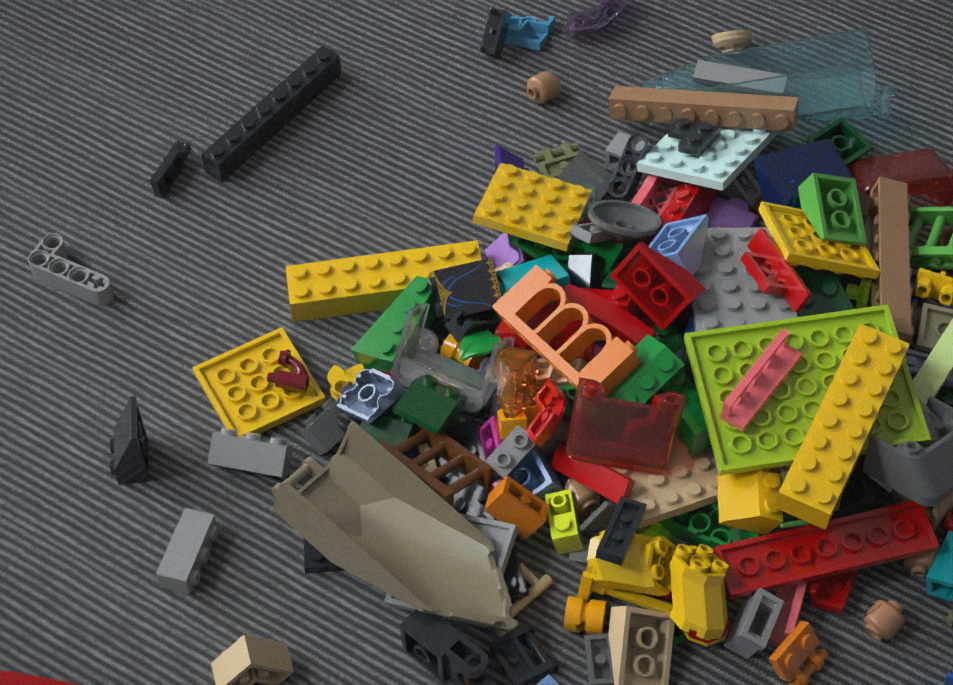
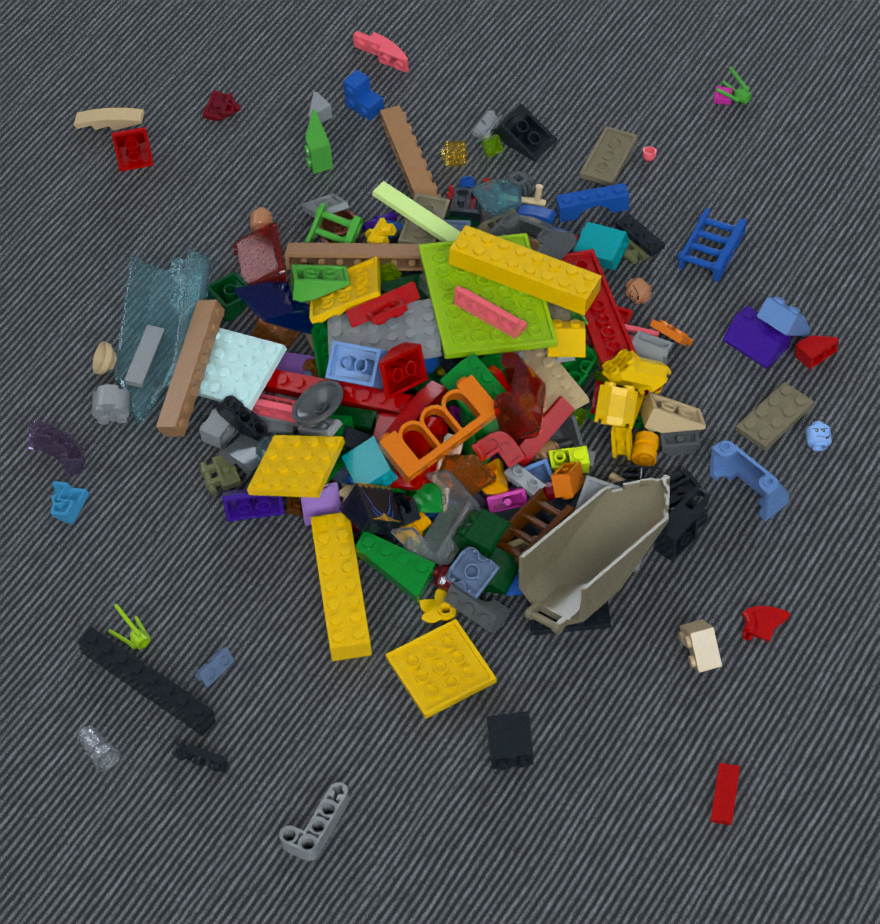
camera: 90 degrees left, 0 degrees up
(187, 551) = (599, 701): light grey brick -> none
(193, 80) = (98, 748): none -> clear plant
(250, 452) = (512, 663): light grey brick -> none
(287, 173) = (217, 665): none -> sand blue hinge
(287, 380) = (444, 639): dark red plant -> none
(333, 104) = (138, 638): none -> lime plant
(495, 32) = (75, 516): black hinge -> none
(543, 87) = (138, 485): medium nougat head -> none
(549, 603) = (640, 474): none -> black shield
(621, 531) = (604, 400): black plate -> none
(657, 49) = (110, 404): none -> light grey brick
(694, 136) = (222, 366): black plate -> none

